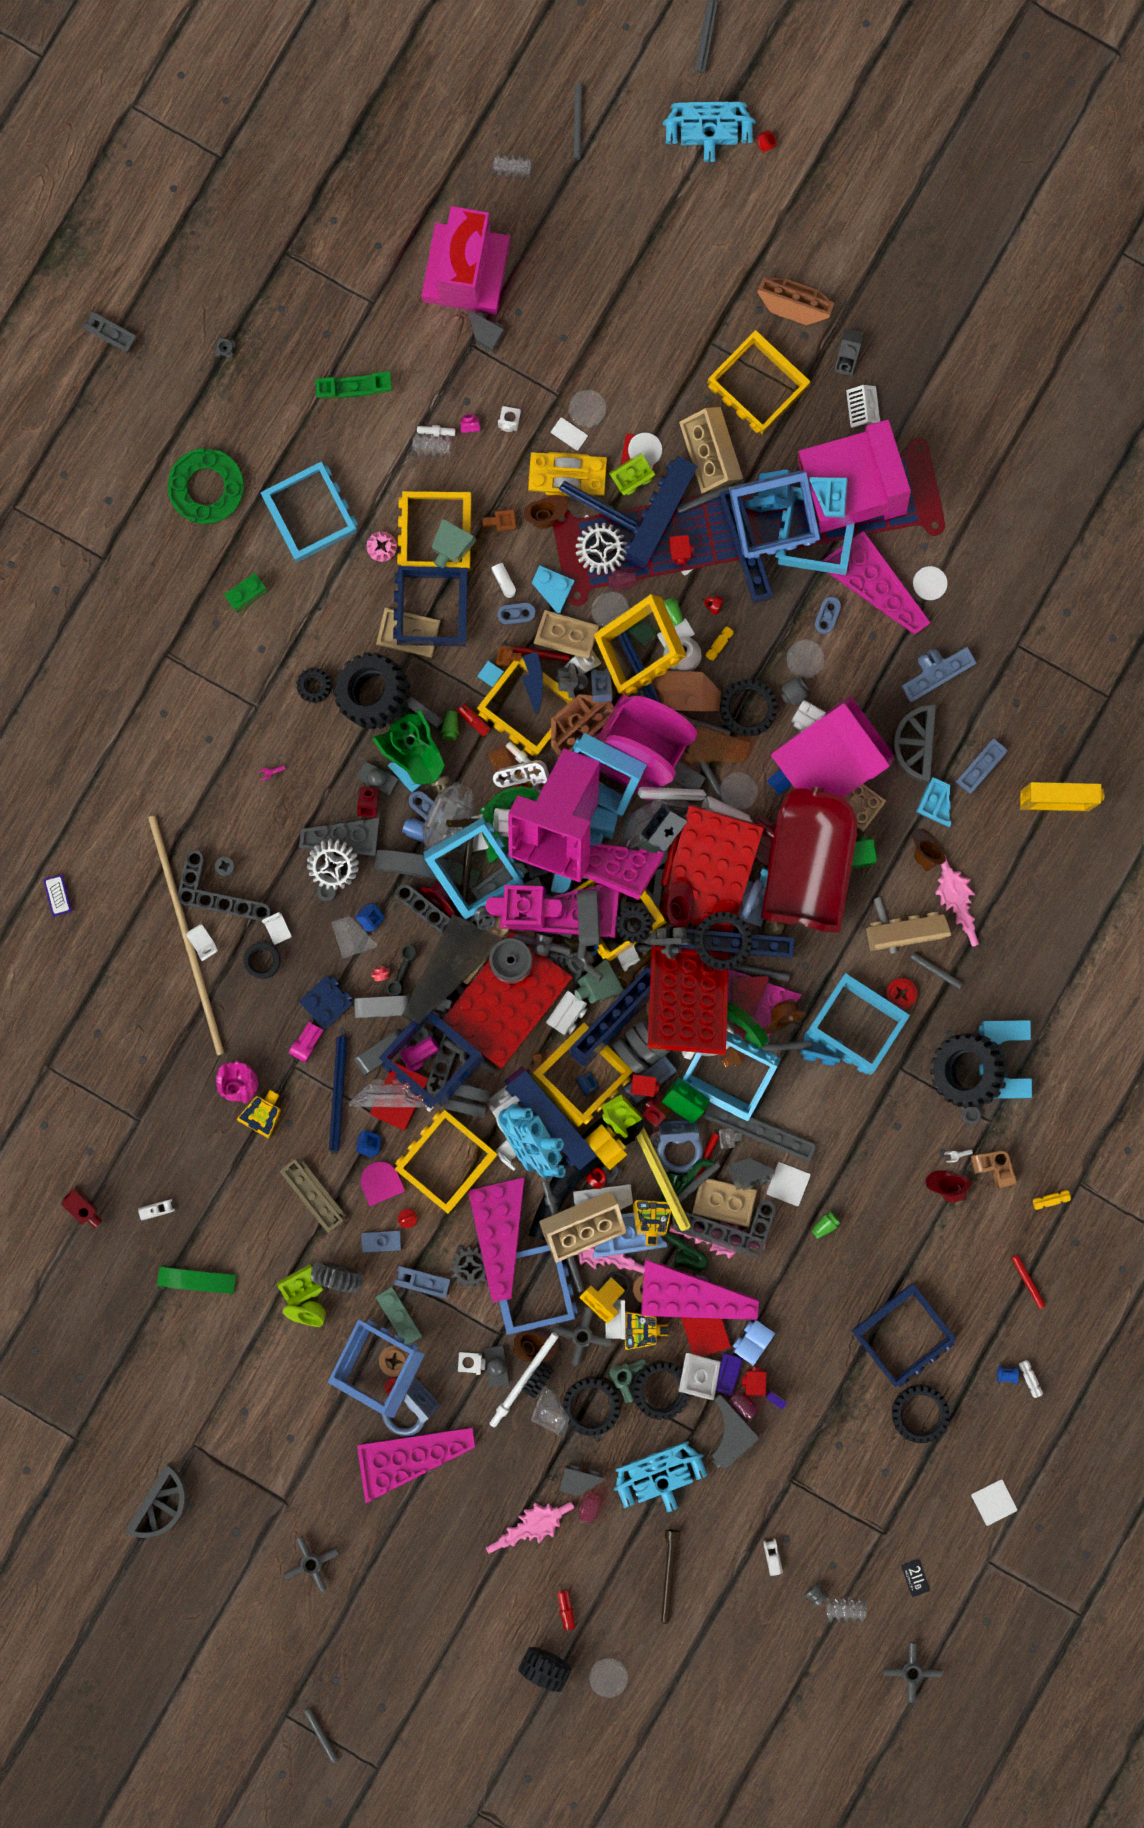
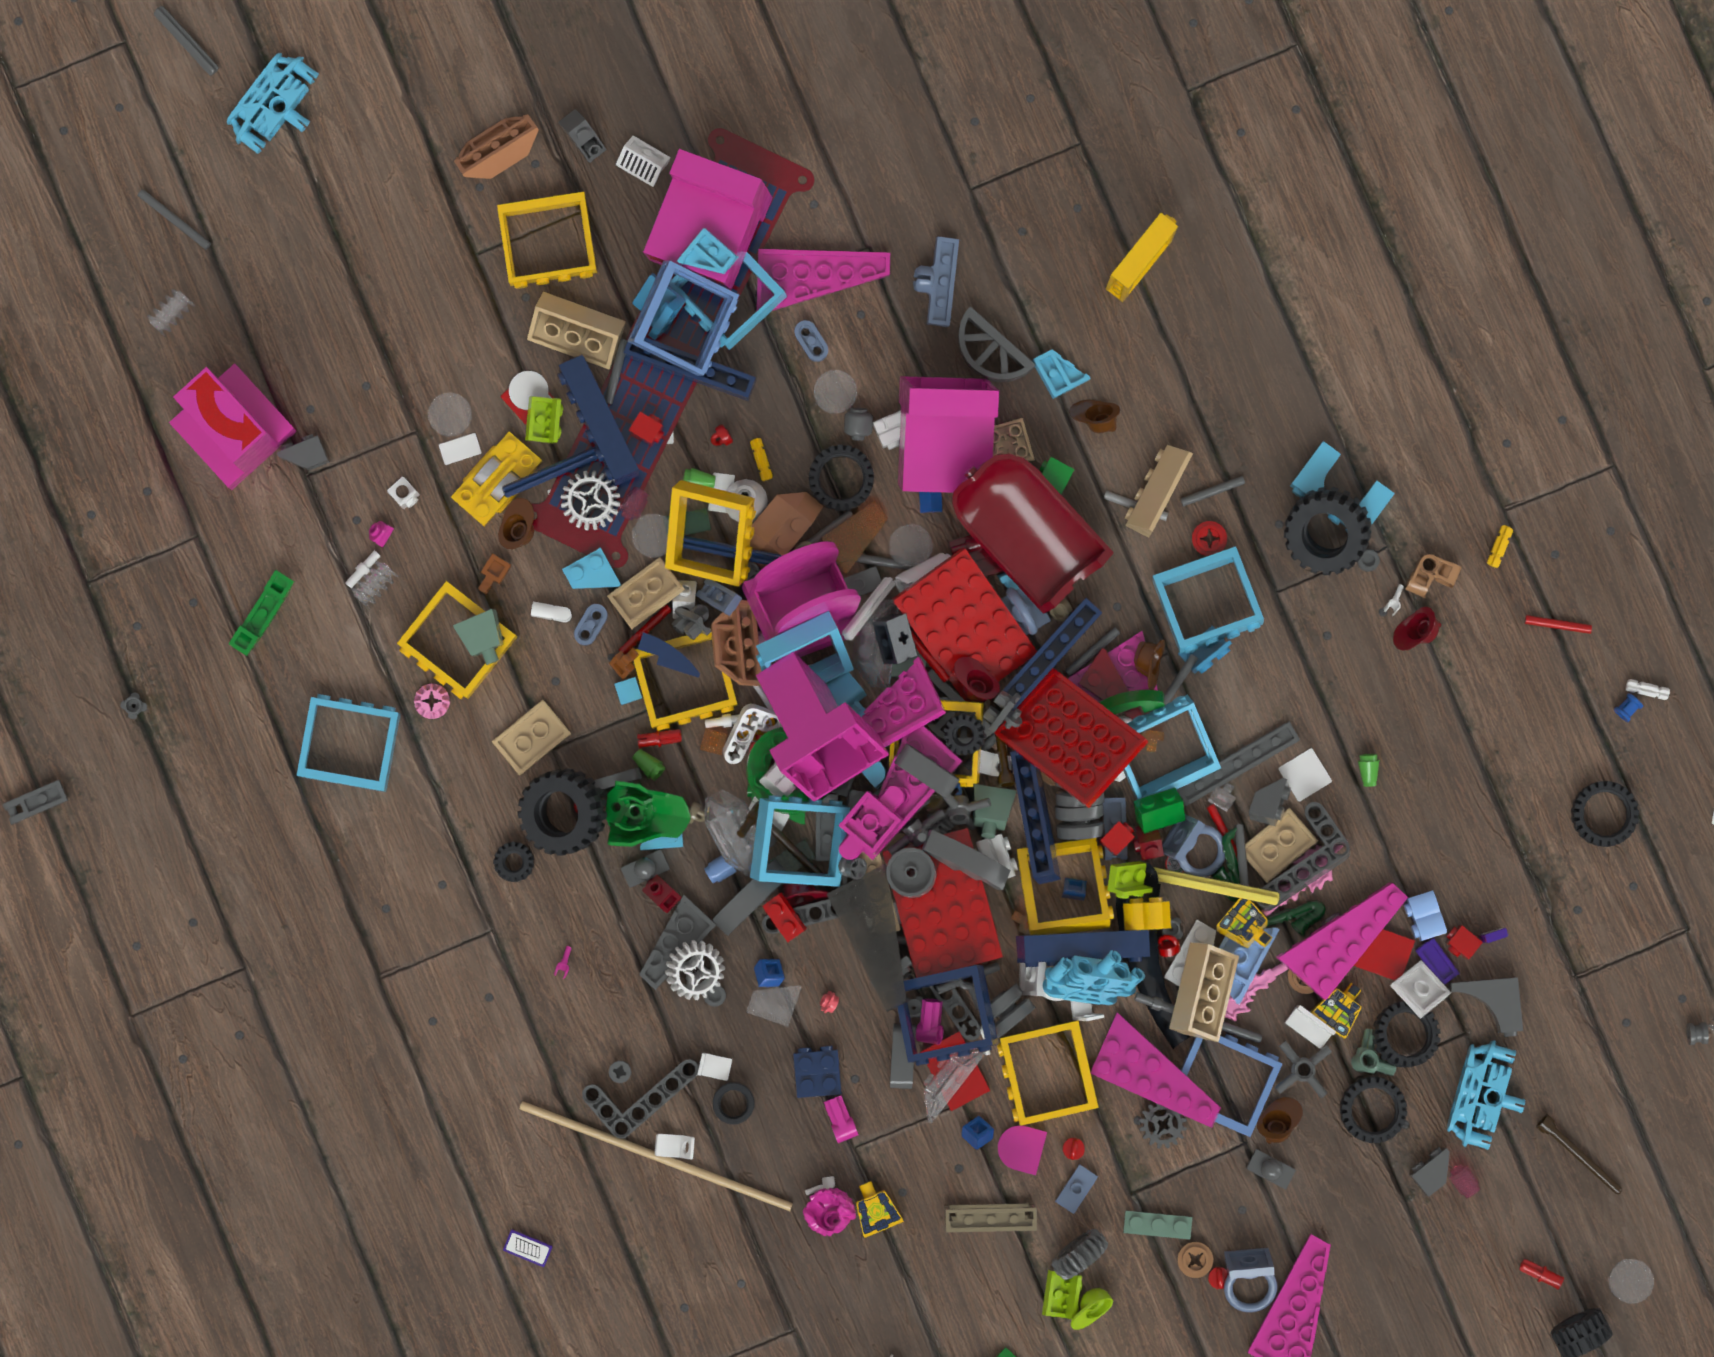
camera: 60 degrees left, 0 degrees up
(186, 467) = (219, 814): green plate -> none
(245, 593) = (379, 860): green piece -> none
(257, 1067) = (828, 1182): none -> white hand
(337, 1097) = (910, 1126): dark blue axle -> none
(350, 1354) = (1159, 1295): medium blue window -> none
(380, 1006) = (860, 1024): light grey beam -> none
(395, 987) = (852, 998): pearl dark grey bar -> none
(414, 897) = (784, 917): none -> red plate
(422, 1282) = (1143, 1178): sand blue plate -> none
(426, 805) = (706, 845): sand blue plate -> none
(430, 572) = (480, 688): dark blue window -> none
(479, 1363) = (1258, 1186): white bracket -> none
(503, 1408) = (1314, 1190): white bar -> none
(536, 1523) = (1441, 1240): bright pink piece -> none
(538, 1379) = (1312, 1139): black tyre -> none
(549, 992) = (965, 859): none -> dark grey slope
(550, 1412) = (1351, 1151): clear wing -> none
(602, 1301) = (1285, 1024): yellow piece -> none
(729, 918) = (1046, 638): black tyre -> none
(743, 1406) = (1477, 969): clear pink brick -> none
(766, 141) = (328, 60): red tile -> none
(773, 1560) = (1636, 1049): white bar -> none
(930, 583) = (852, 224): white sticker -> none
(930, 1356) = (1486, 780): dark blue window -> none
(955, 894) = (1155, 420): bright pink piece -> none
(981, 766) = (1057, 307): sand blue plate -> none

